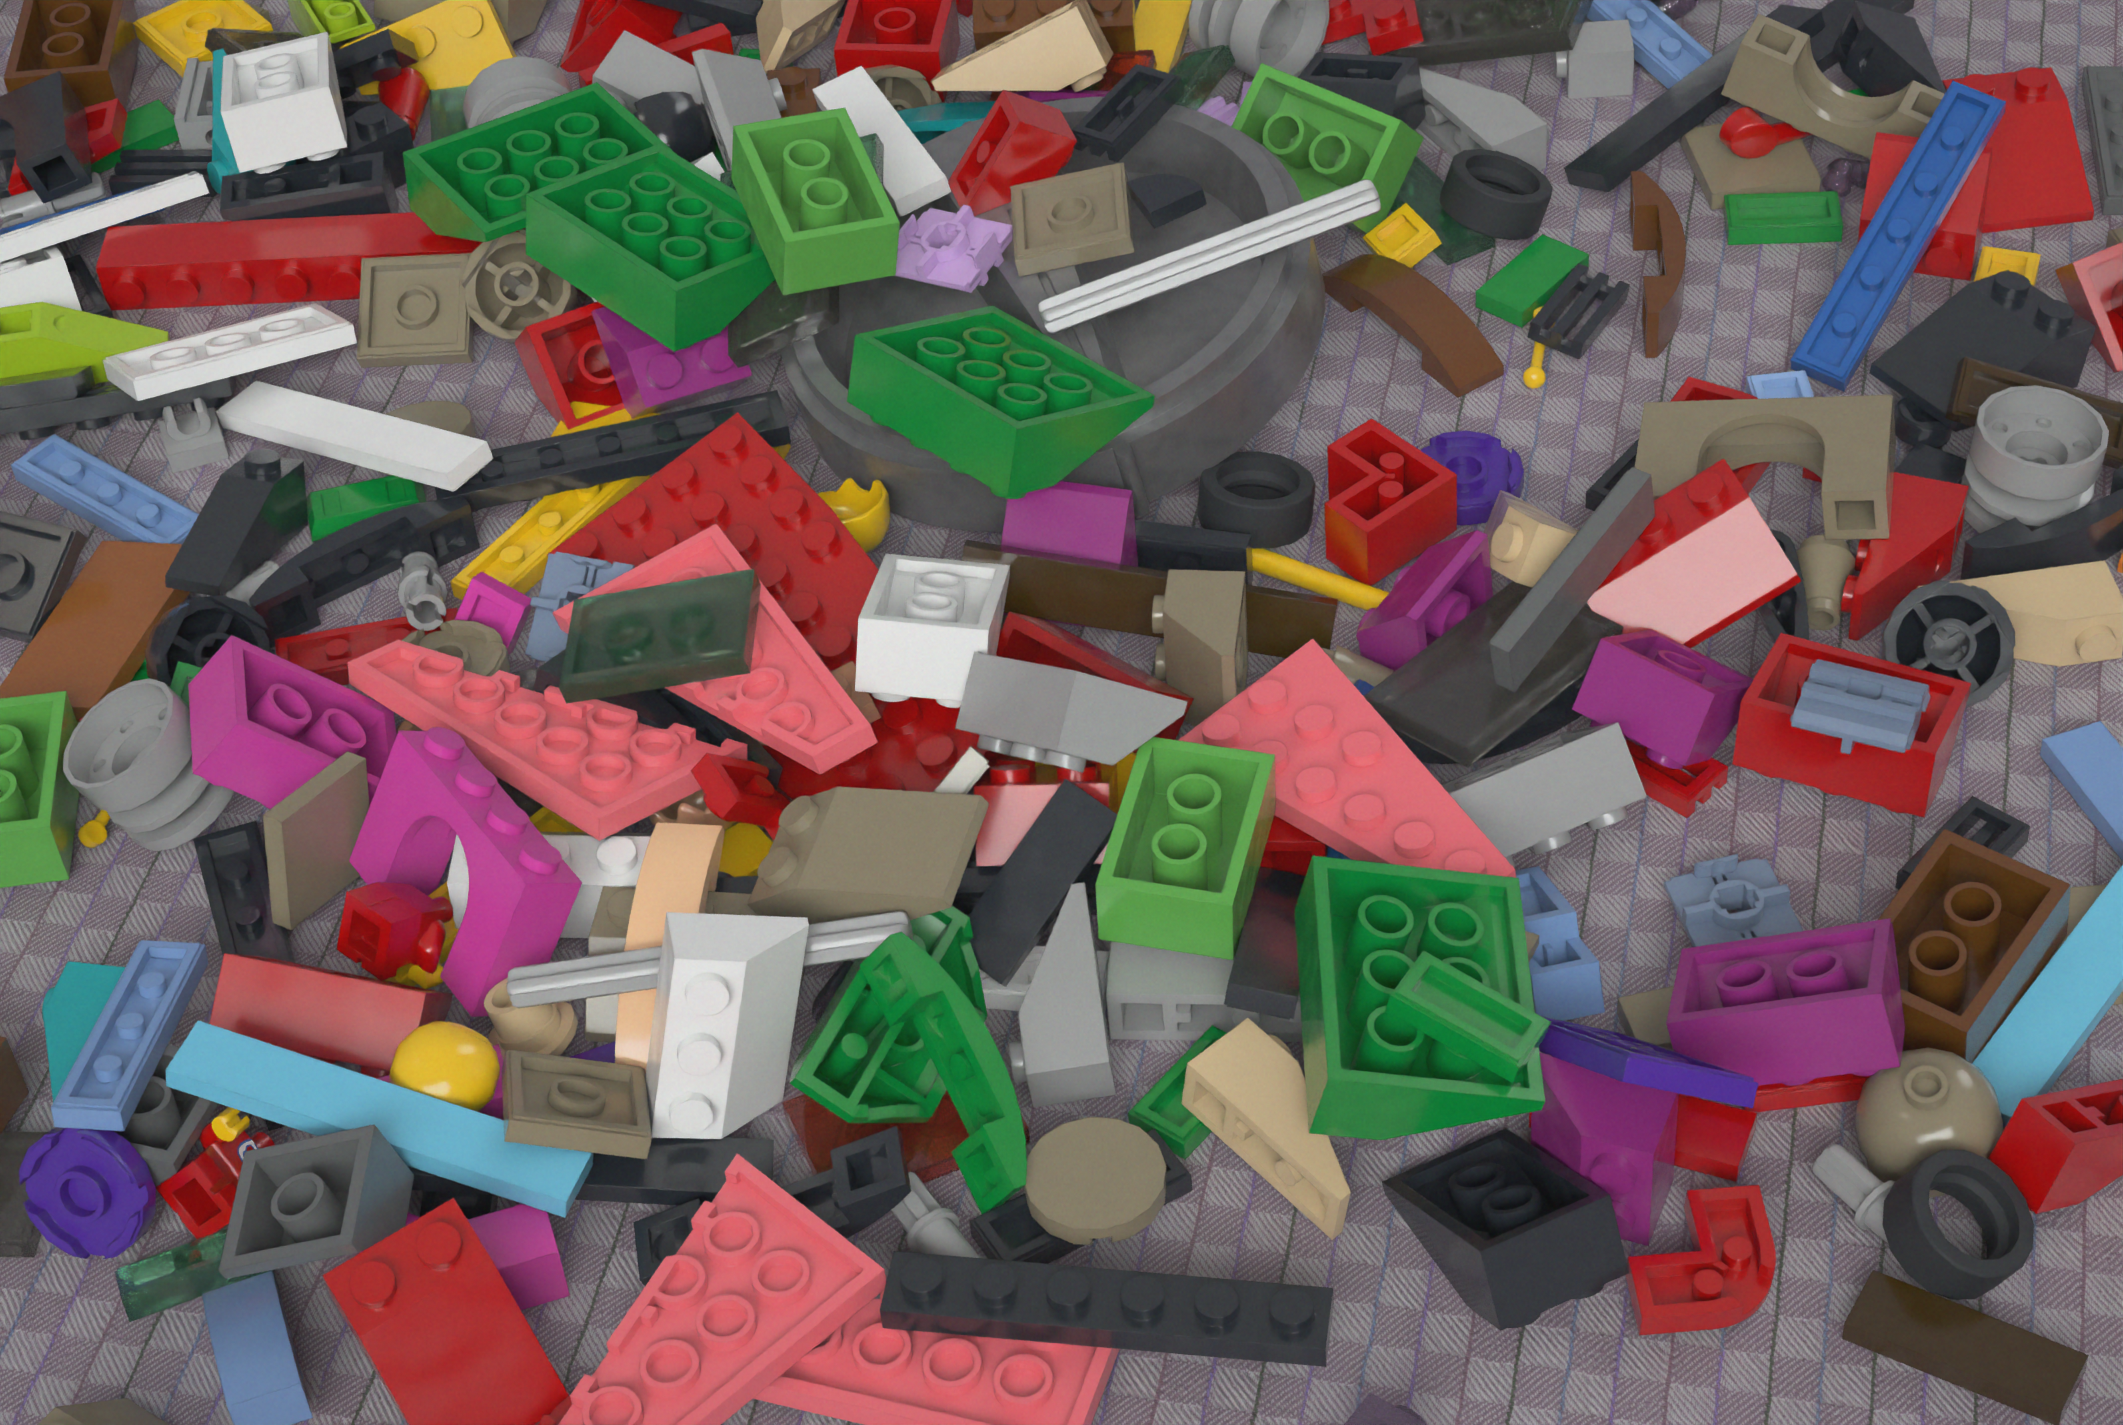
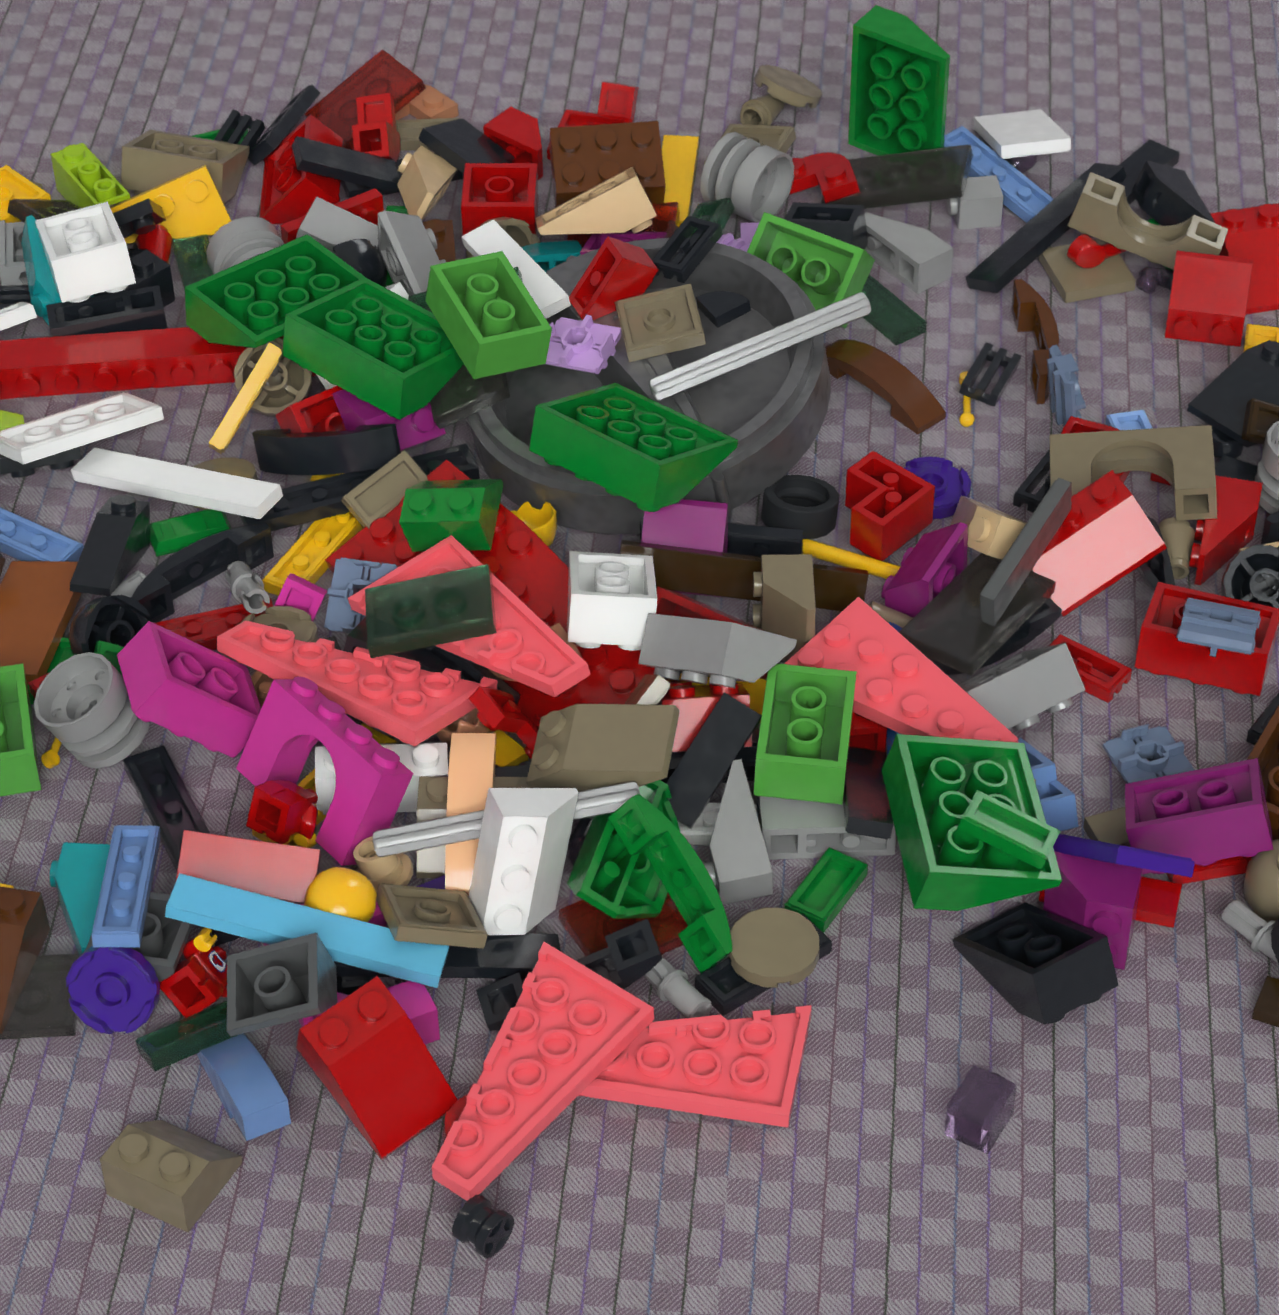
camera: 10 degrees left, 0 degrees up
(192, 437) = (56, 488): light grey tile -> none
(313, 838) = (217, 753): dark tan tile -> none
(414, 311) = (196, 393): dark tan tile -> none
(471, 316) = (245, 398): none -> yellow tile
(576, 395) = (326, 452): none -> black slope
(642, 452) = (383, 489): none -> dark tan tile
(724, 484) = (451, 508): none -> green slope
(1108, 1308) = (797, 1024): black plate -> none
(1257, 1104) = (878, 901): tan slope -> none
(1402, 237) = (867, 329): yellow tile -> none
(1495, 194) = (924, 296): black tyre -> none
(1529, 280) = (954, 354): green tile -> none
(1662, 696) = (1089, 625): magenta slope -> none
(1682, 330) = (1063, 386): none -> sand blue piece
(1717, 1281) = (1172, 986): red plate -> none
(1782, 218) = (1113, 308): green tile -> none
(1898, 236) = (1196, 319): blue tile -> none

